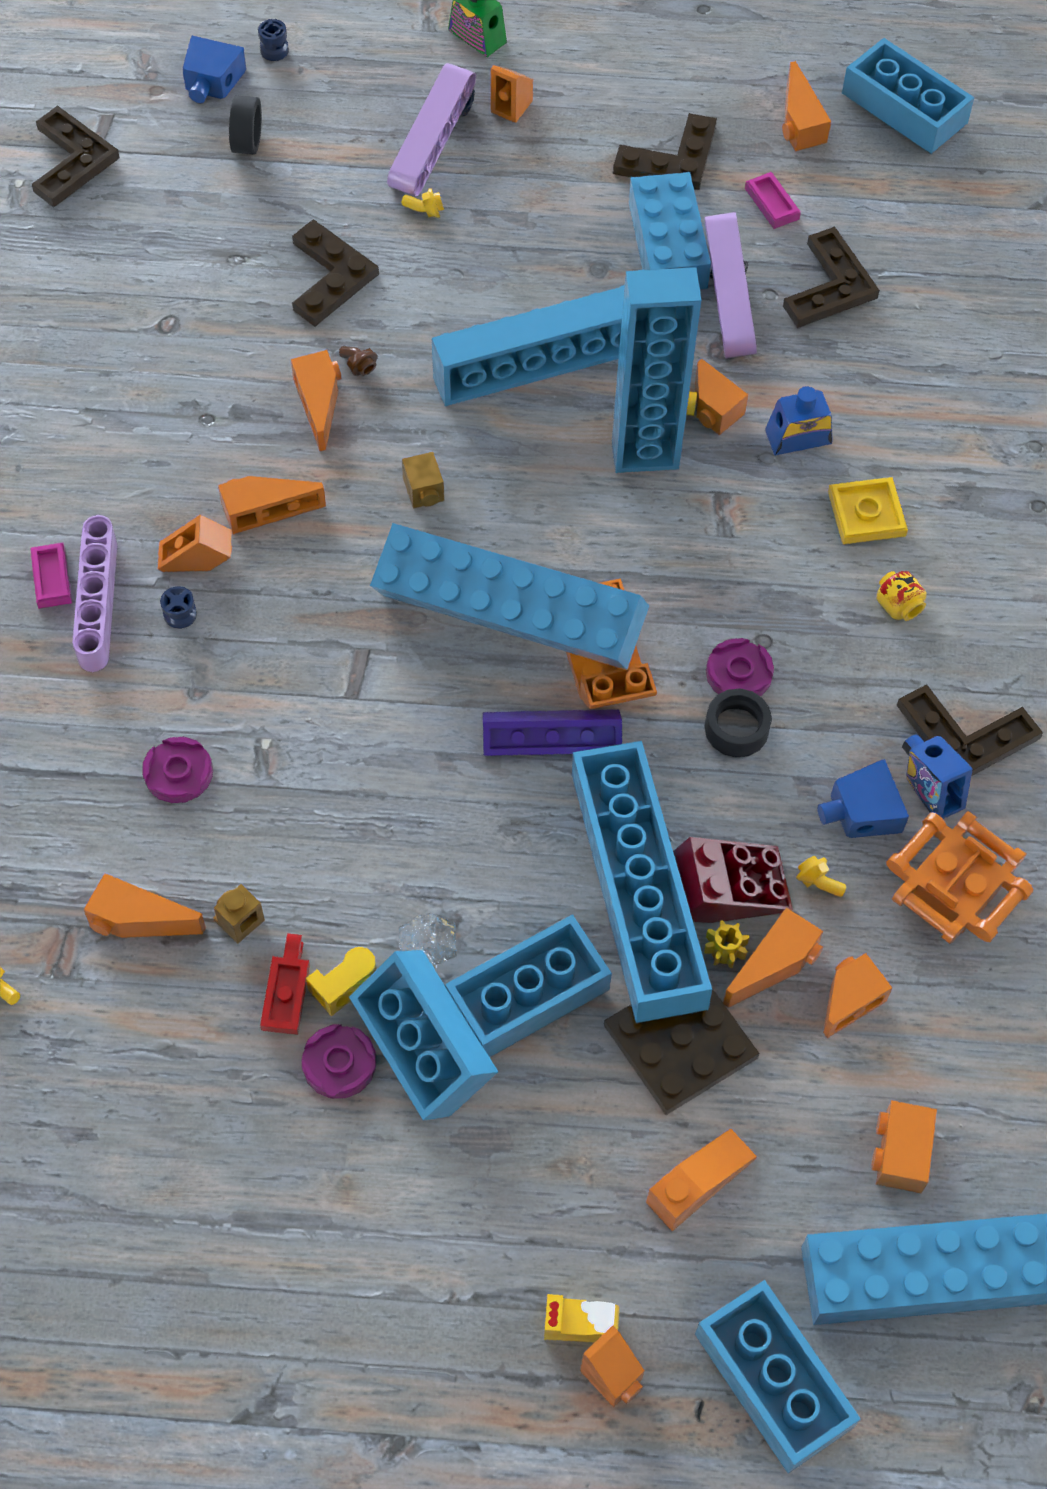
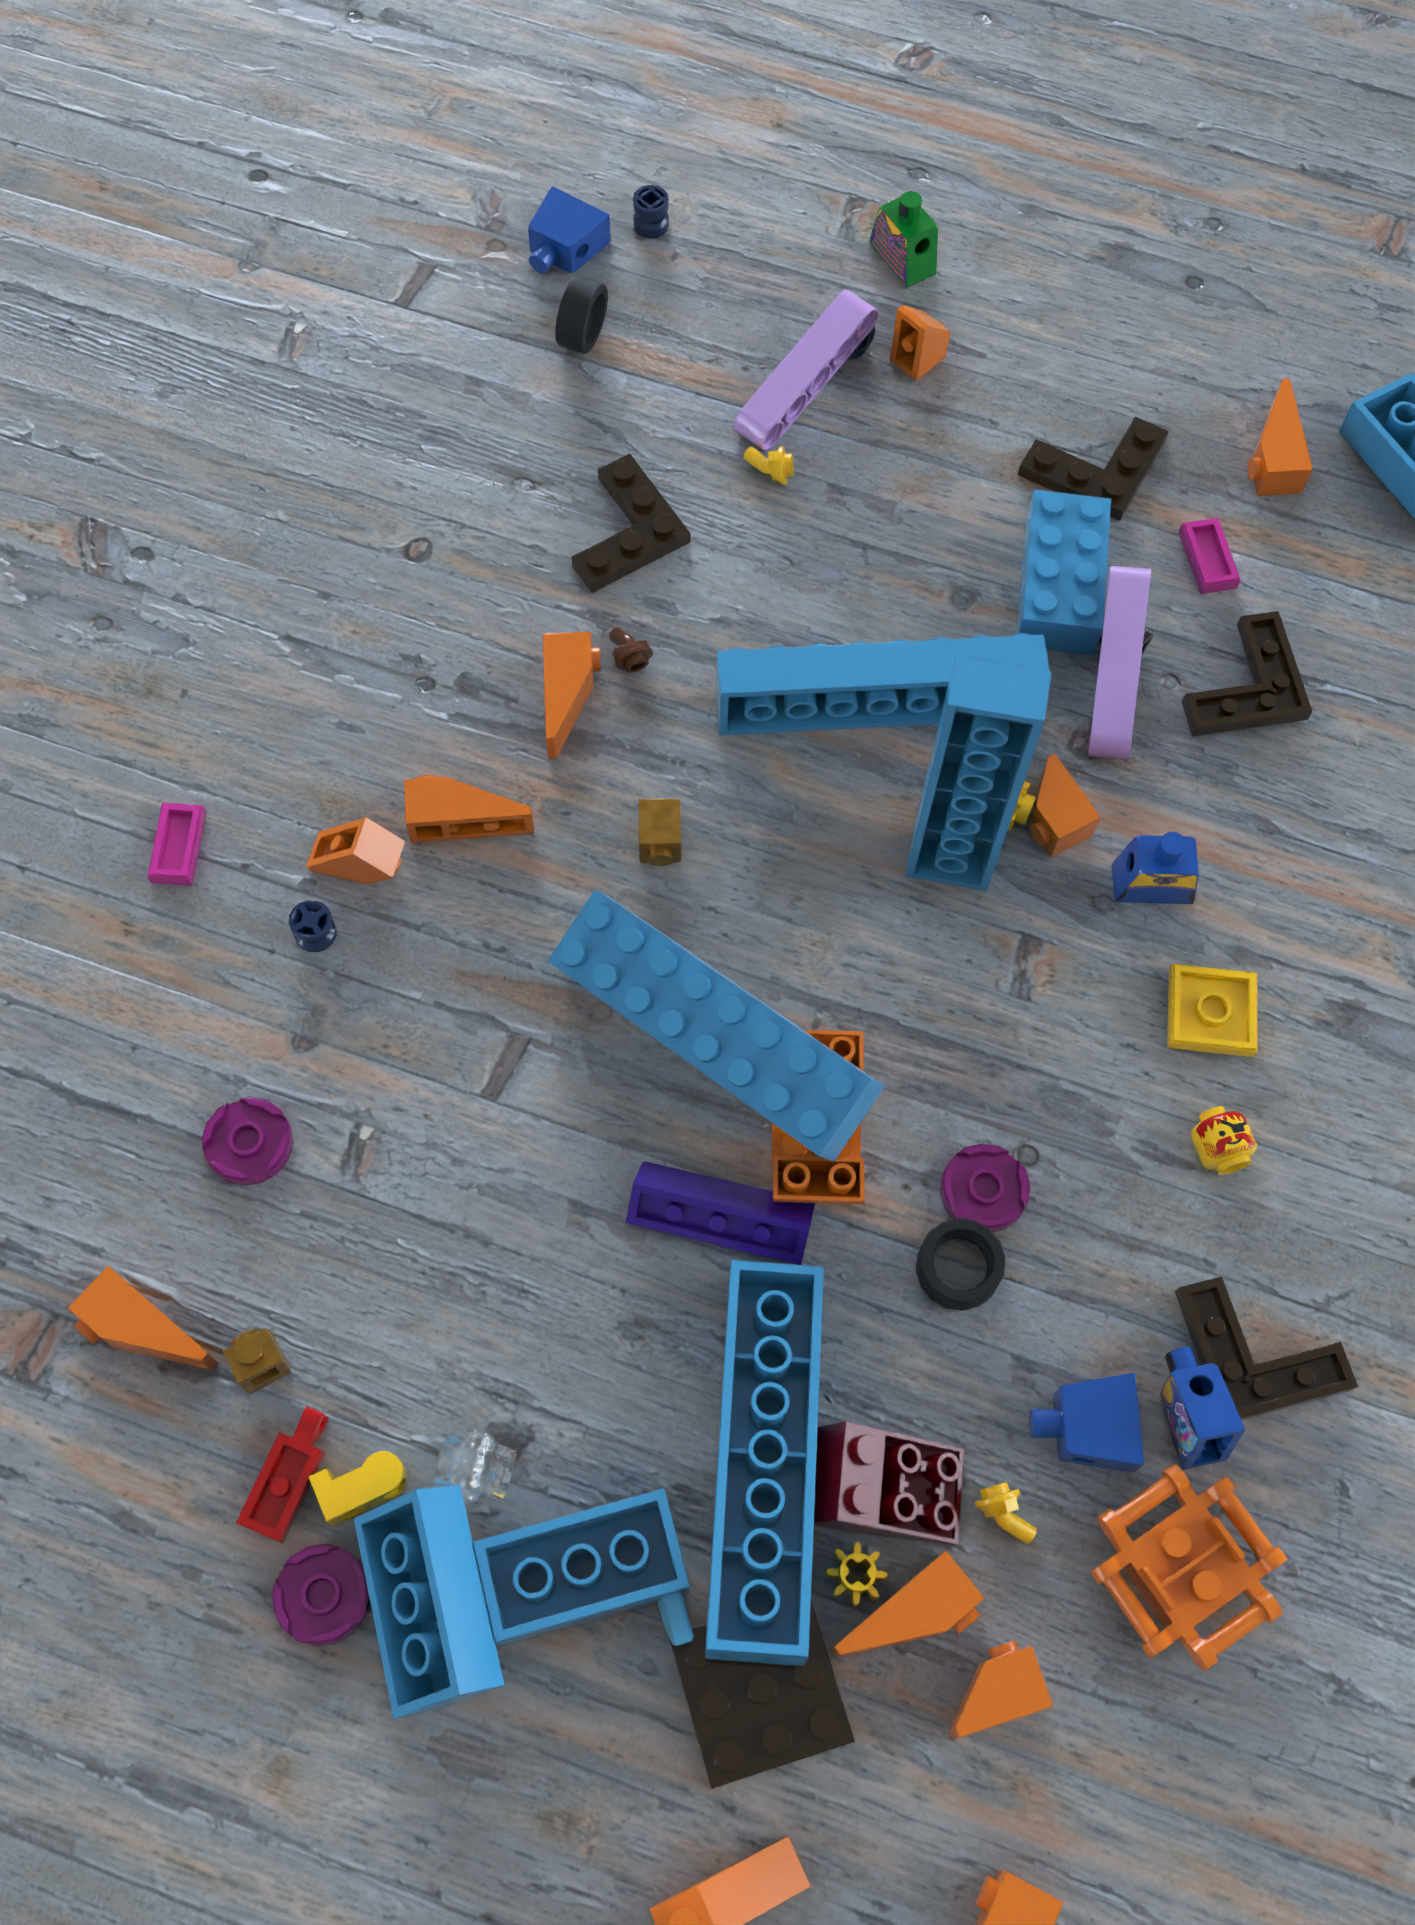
camera: 15 degrees right, 5 degrees up
(88, 156) = (387, 315): dark brown plate -> none
(98, 605) = (223, 899): lavender beam -> none
(605, 1002) = (675, 1618): none -> medium azure tile

